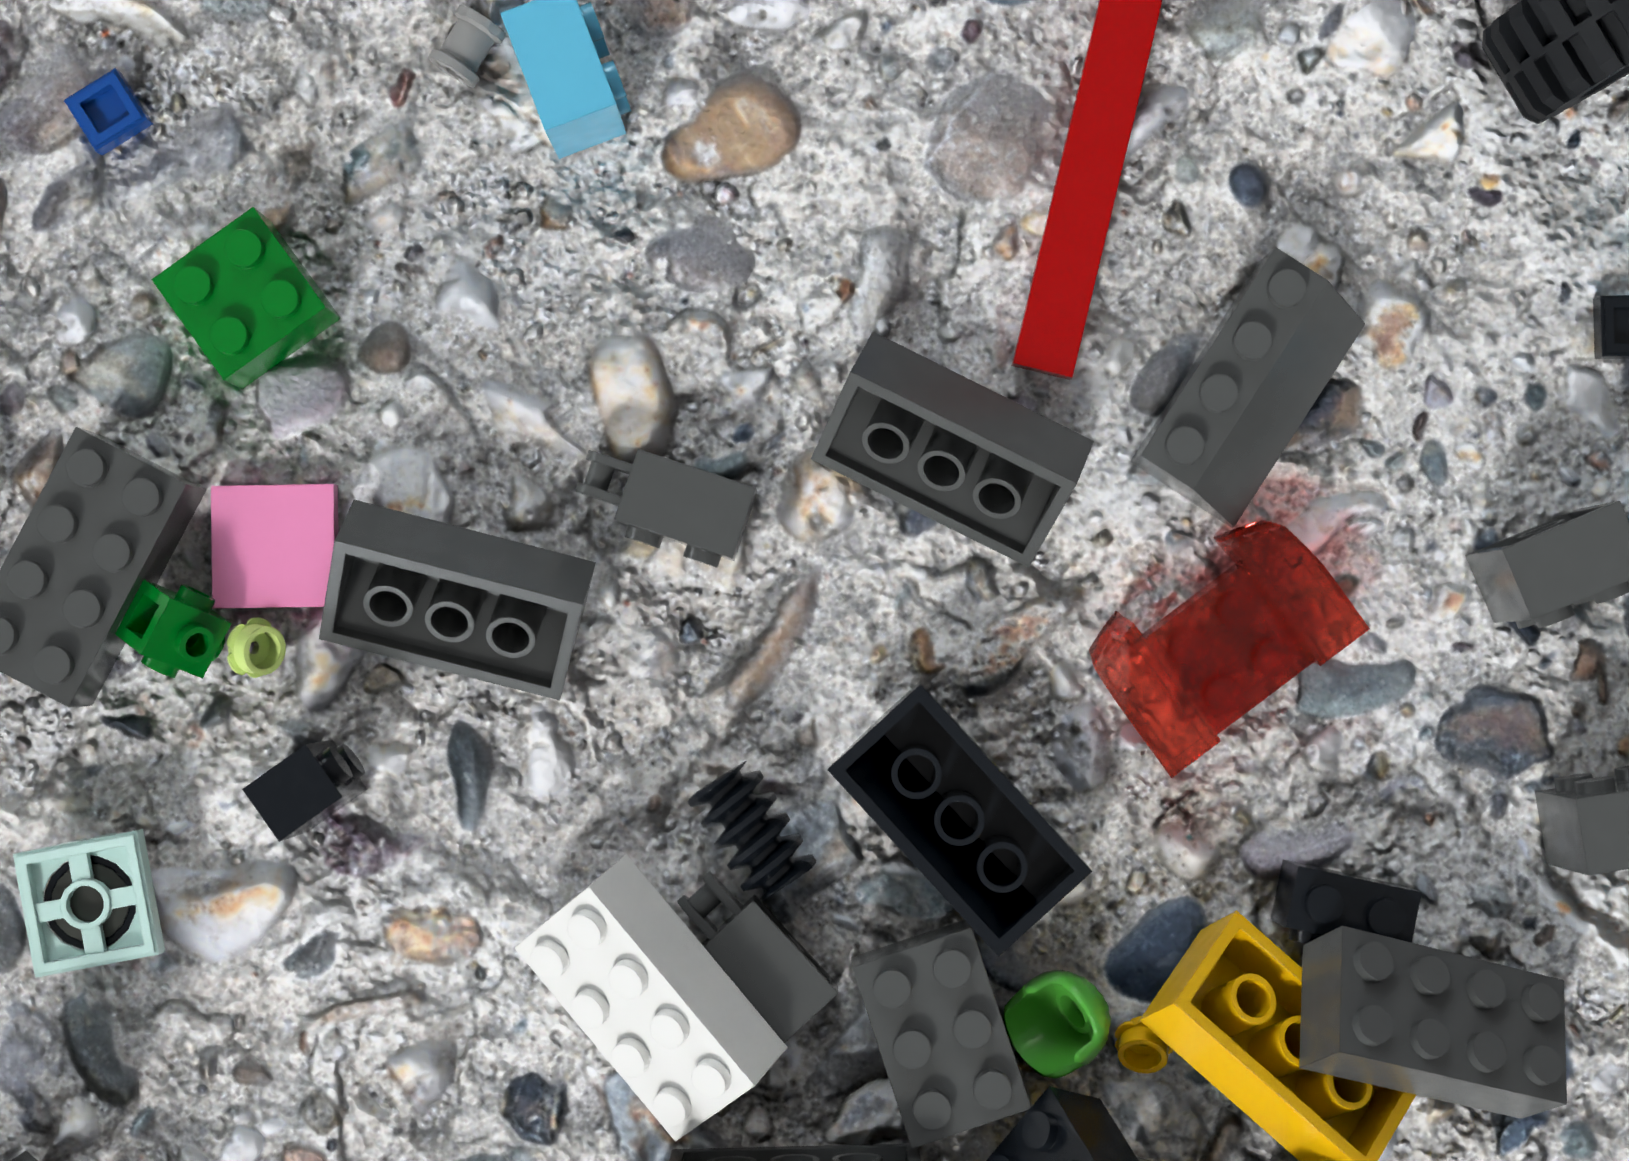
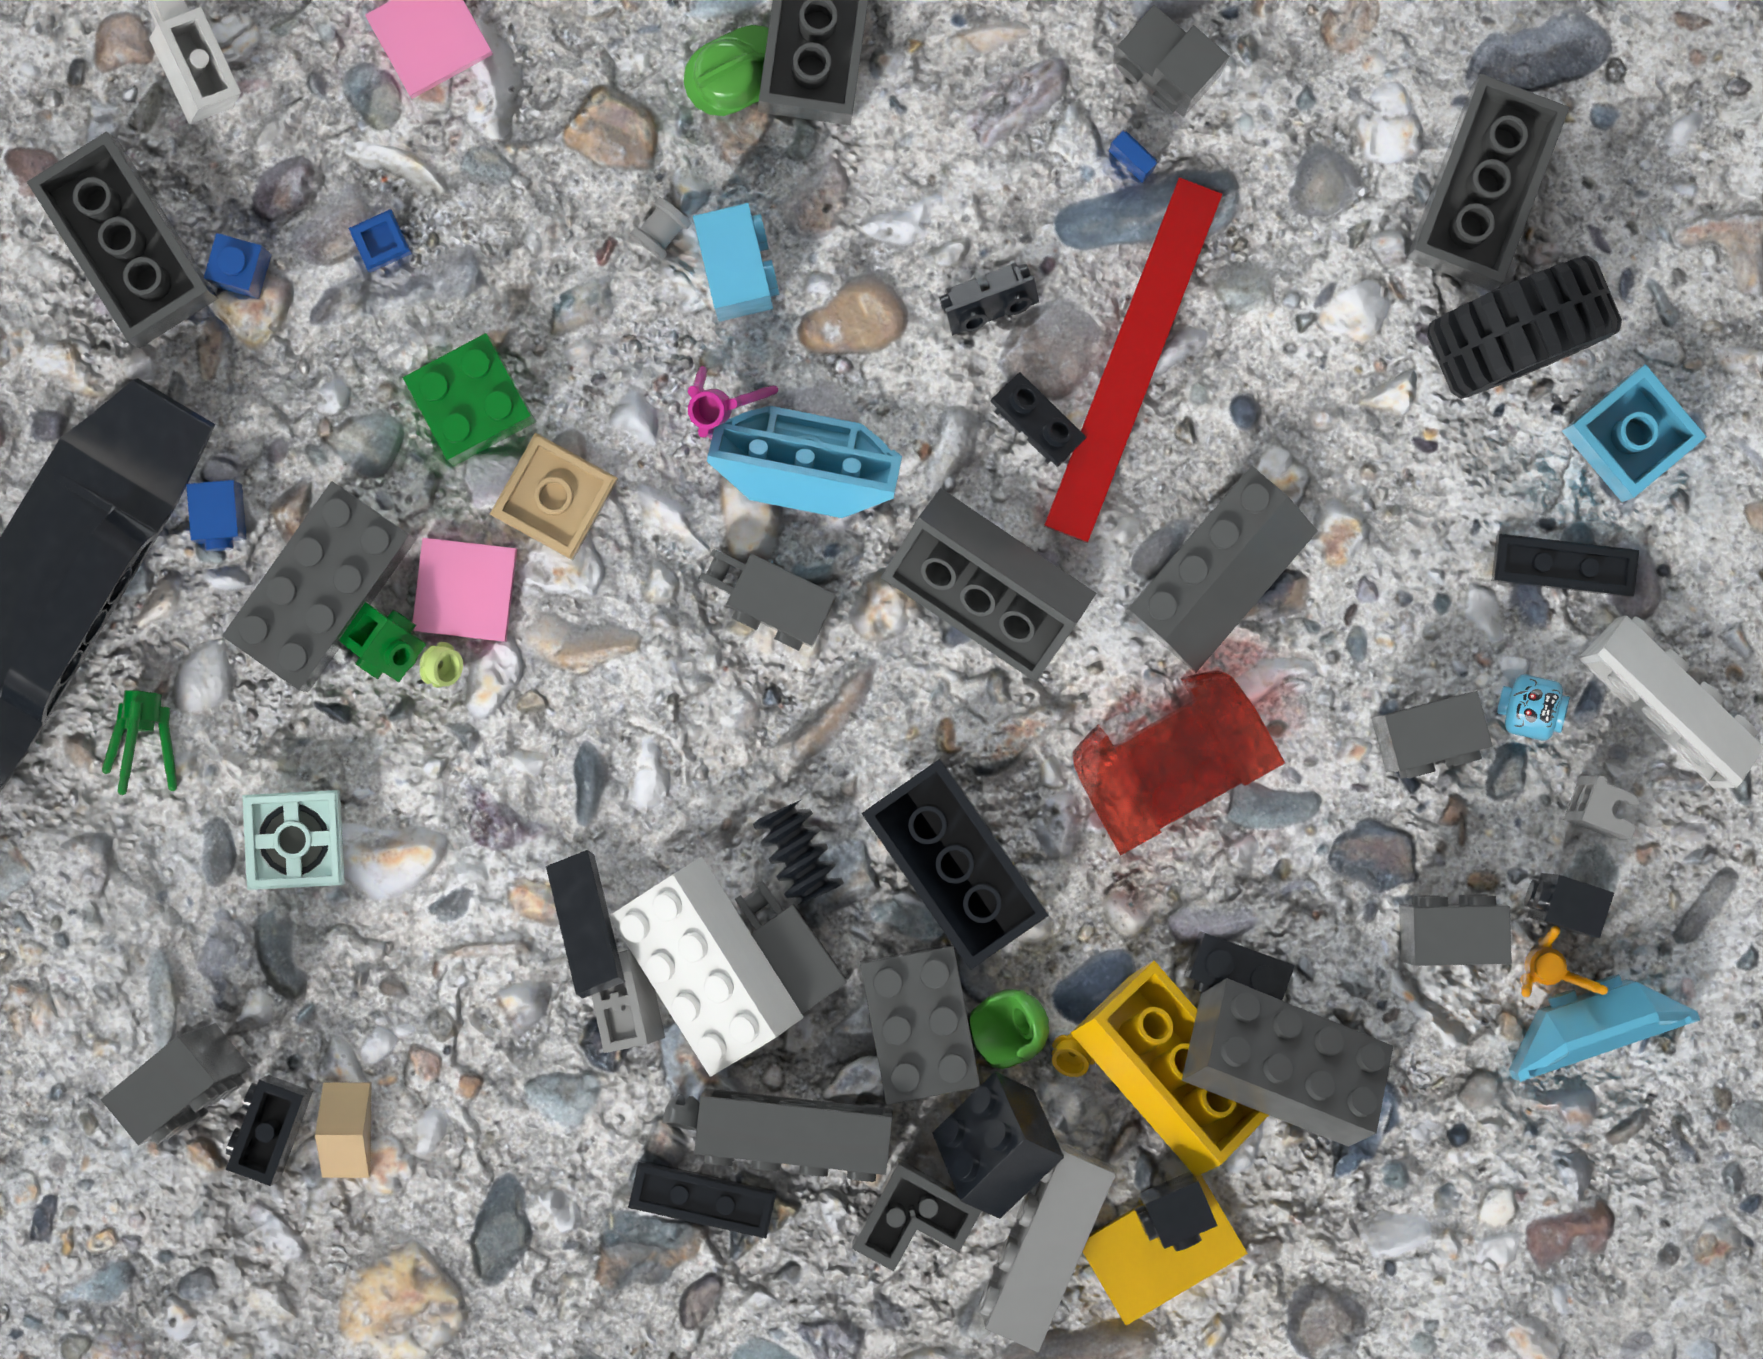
camera: 10 degrees right, 0 degrees up
(306, 788) = (469, 775): black brick -> none
(375, 410) = (554, 496): none -> tan tile
(455, 599) = (598, 649): dark grey slope -> none
(485, 963) = (585, 924): none -> black tile
(549, 1057) = (629, 1011): none -> light grey hinge
(563, 263) = (713, 407): none -> dark pink plant
(691, 321) = (805, 461): none -> medium azure wedge
(928, 71) = (1010, 293): none -> black hinge
(976, 218) = (1038, 419): none -> black hinge

